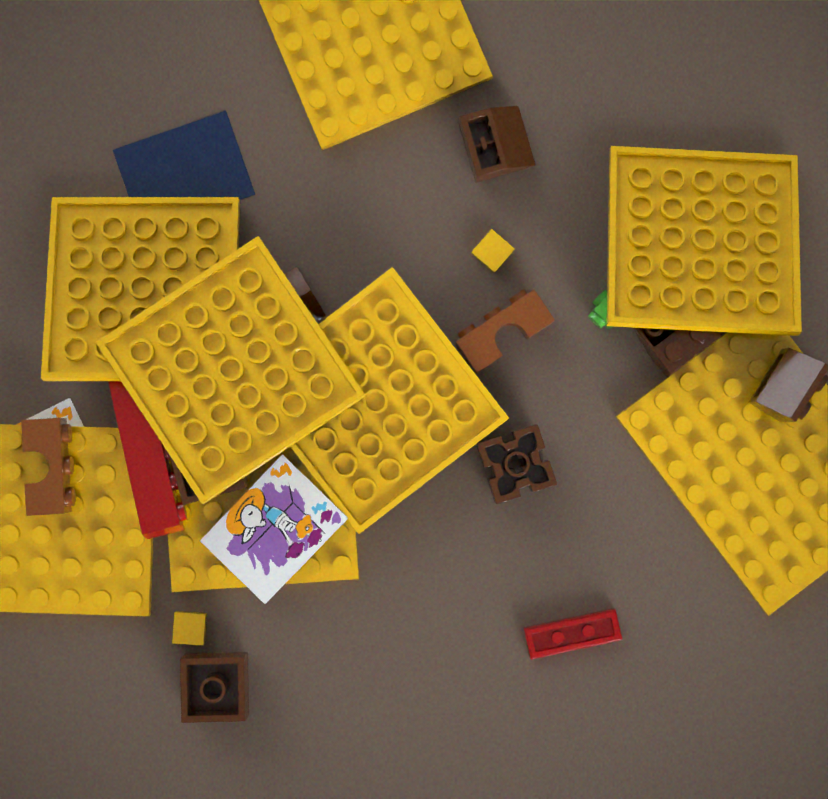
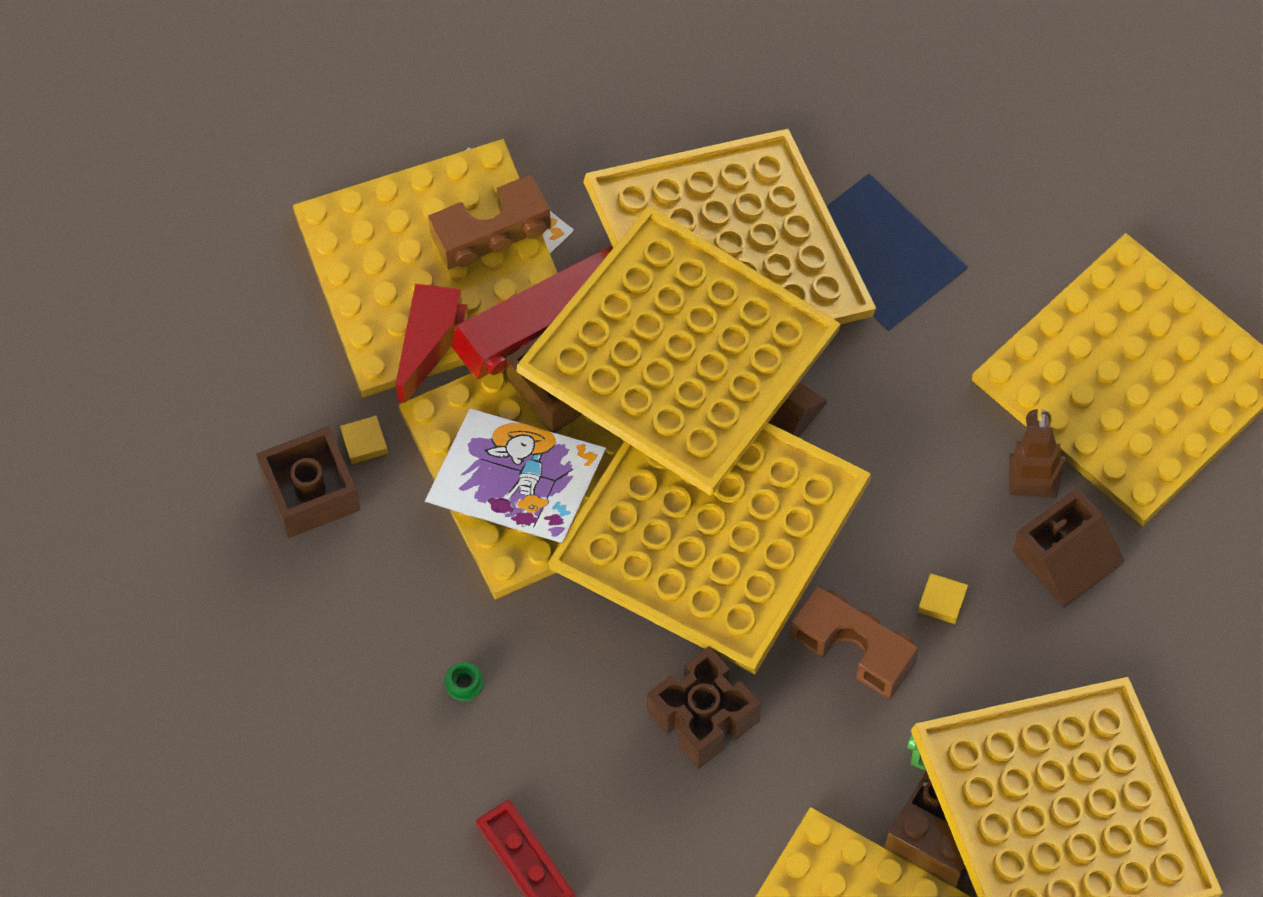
camera: 70 degrees right, 25 degrees down
(125, 549) = (428, 334): none -> red slope
(416, 636) = (461, 671): none -> green plate
(420, 132) = (1037, 460): none -> reddish brown connector

